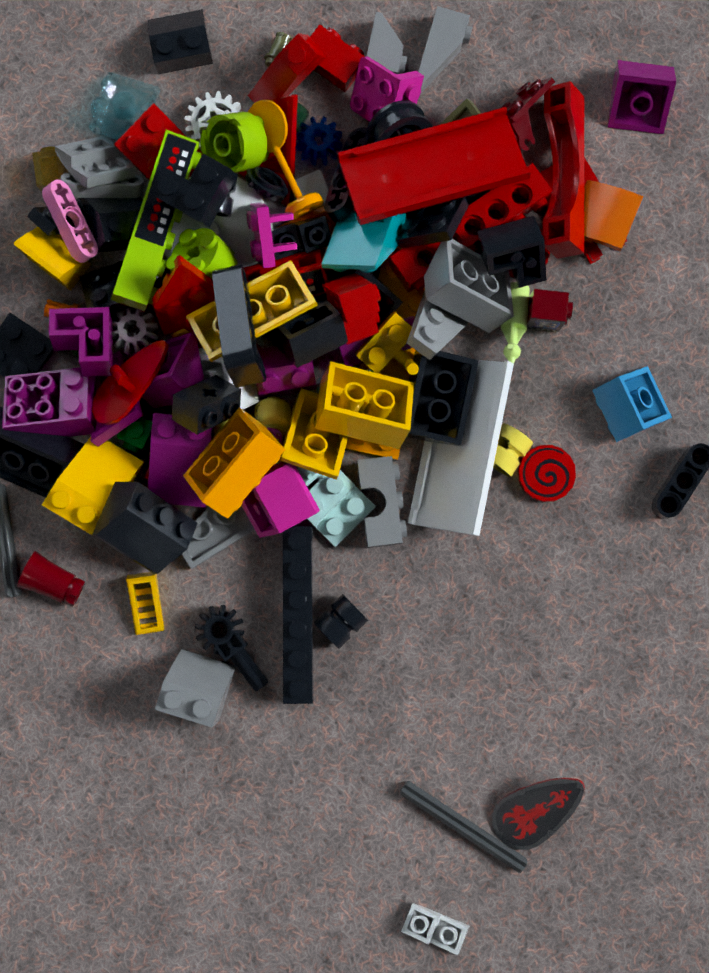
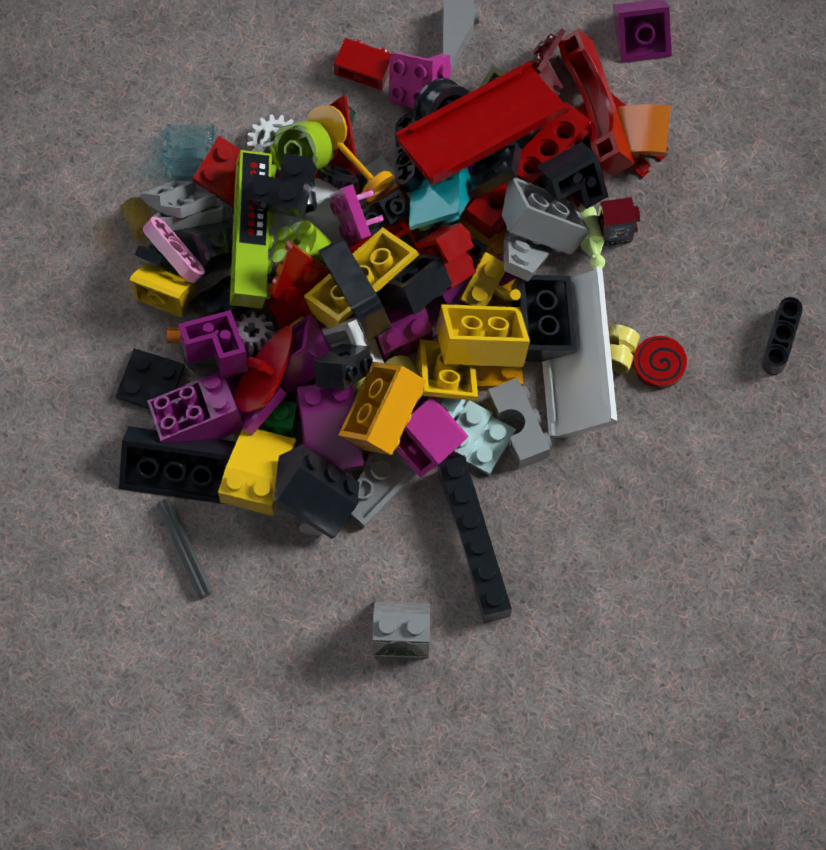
camera: 20 degrees left, 15 degrees down
(50, 580) = (238, 569): dark red plant -> none
(133, 593) = (312, 553): yellow slope -> none
(179, 42) = (224, 84): black slope -> none
(232, 645) = (420, 583): black gear -> none
(279, 43) = (313, 77): olive pin -> none
(288, 69) = (328, 80): red slope -> none
(309, 145) = (368, 142): clear blue gear -> none
(340, 621) = (516, 531): black wheel -> none
(386, 46) = (407, 40): light grey slope -> none
(435, 928) = (684, 787): white slope -> none
(463, 826) = (682, 688): dark grey axle -> none
(536, 811) = (743, 654): shield -> none
(631, 403) = (715, 282): dark azure slope -> none

